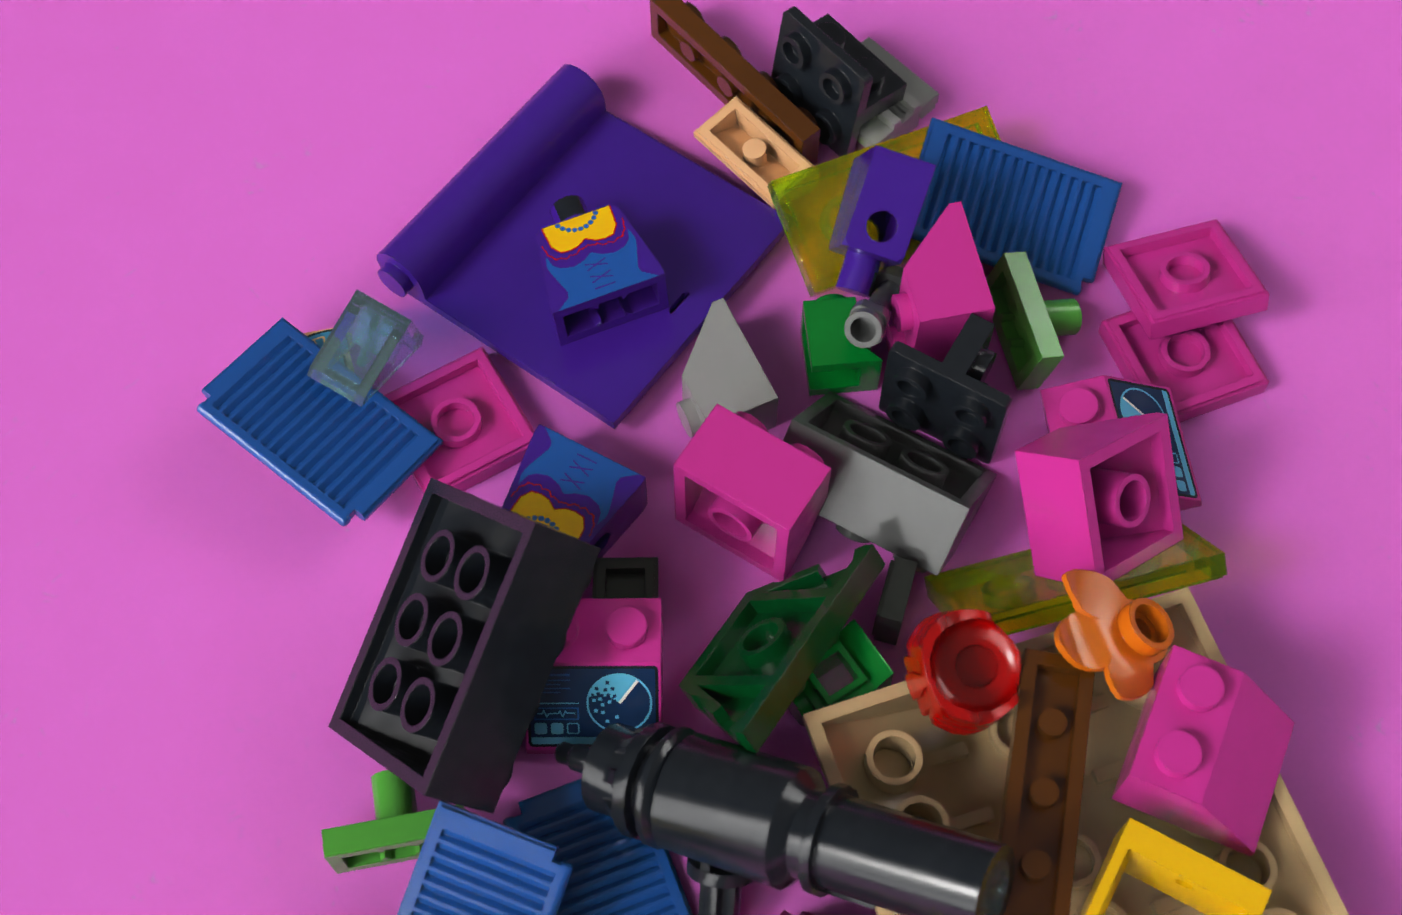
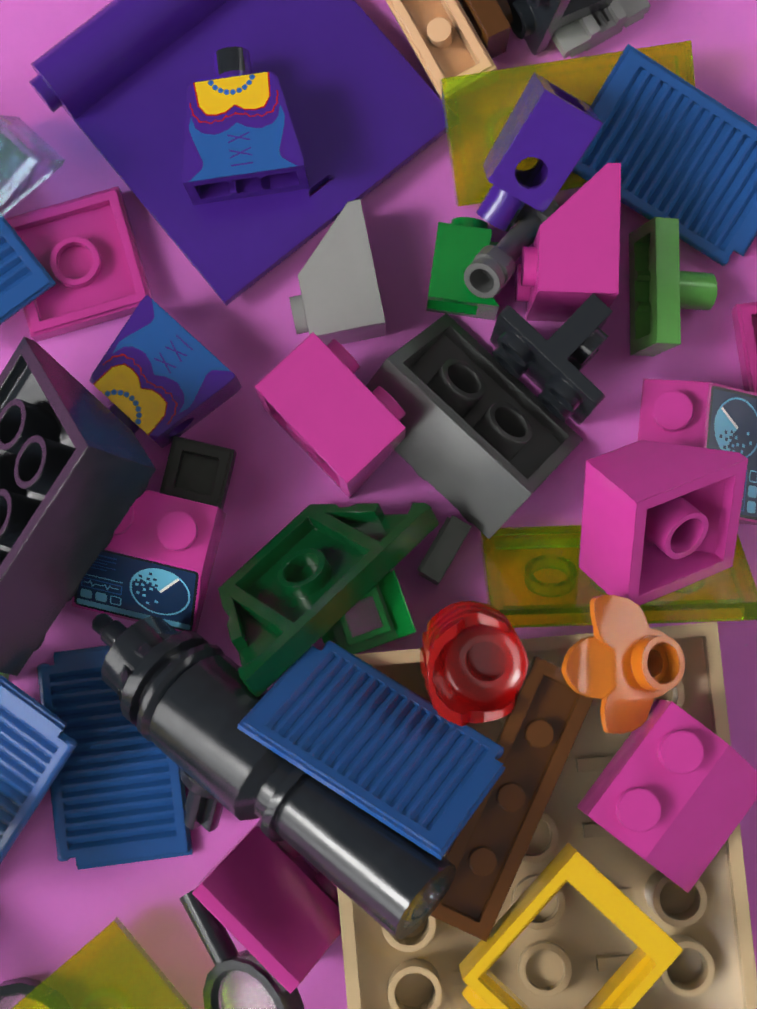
camera: 15 degrees right, 20 degrees up
(895, 763) = (377, 745): none -> blue window

